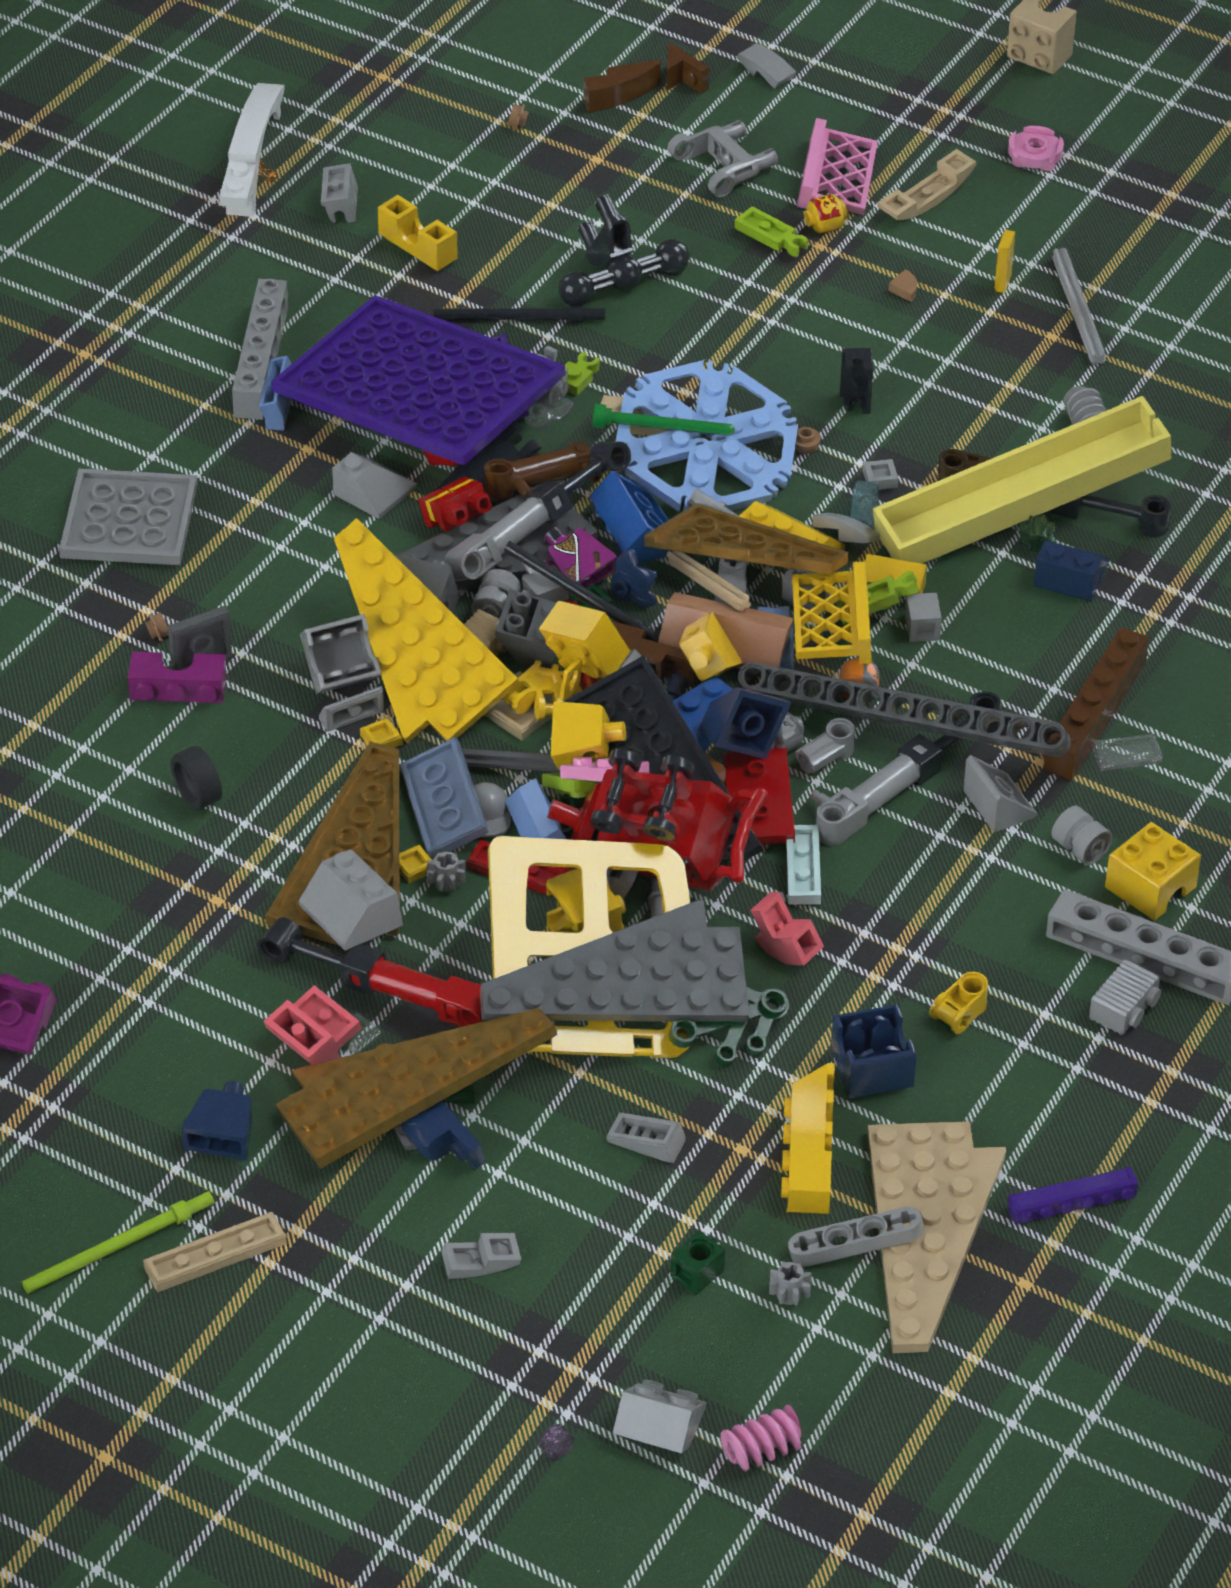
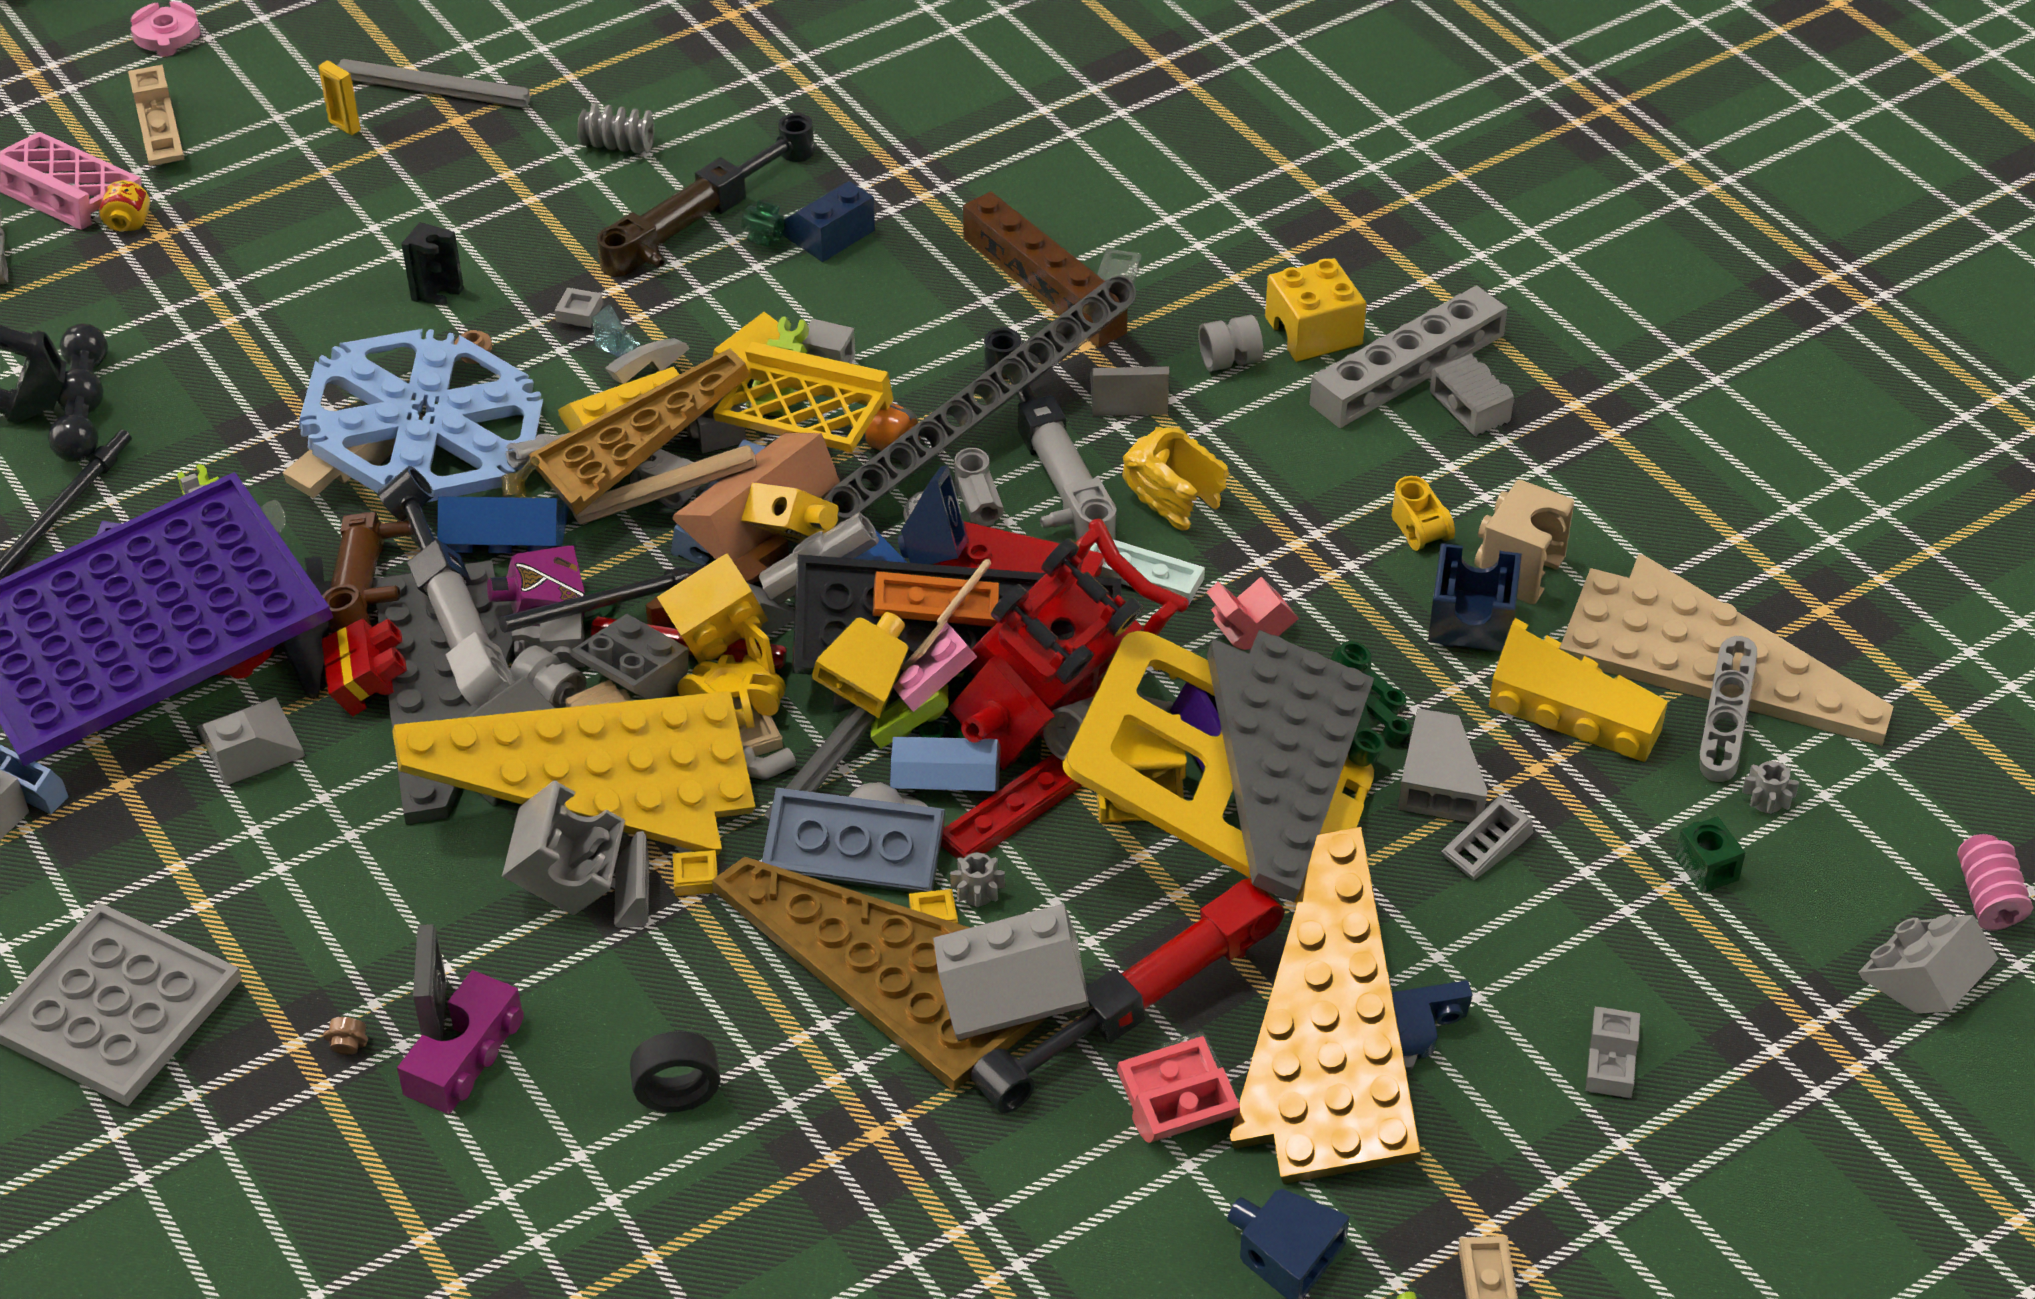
camera: 65 degrees left, 0 degrees up
(491, 732) = (769, 766): none -> light grey arm
(556, 1442) = (1936, 1071): clear purple bush -> none
(603, 754) = (947, 613): none -> tan piece
(605, 416) = (342, 472): green piece -> none
(632, 581) = (616, 548): dark blue plate -> none
(651, 734) = (929, 596): none -> orange plate
(676, 509) = (515, 482): none -> clear yellow hand
(679, 677) = (843, 541): none -> light grey piece
(697, 1084) = (1441, 770): none -> light grey slope
(770, 231) = (113, 257): lime plate -> none
(891, 832) = (1170, 471): none -> yellow piece
(904, 285) = (291, 191): medium nougat tile -> none
(955, 1059) = (1528, 523): none -> tan piece
(1023, 483) = (710, 197): light yellow piece -> none
(1072, 1195) = (1725, 530): dark purple piece -> none

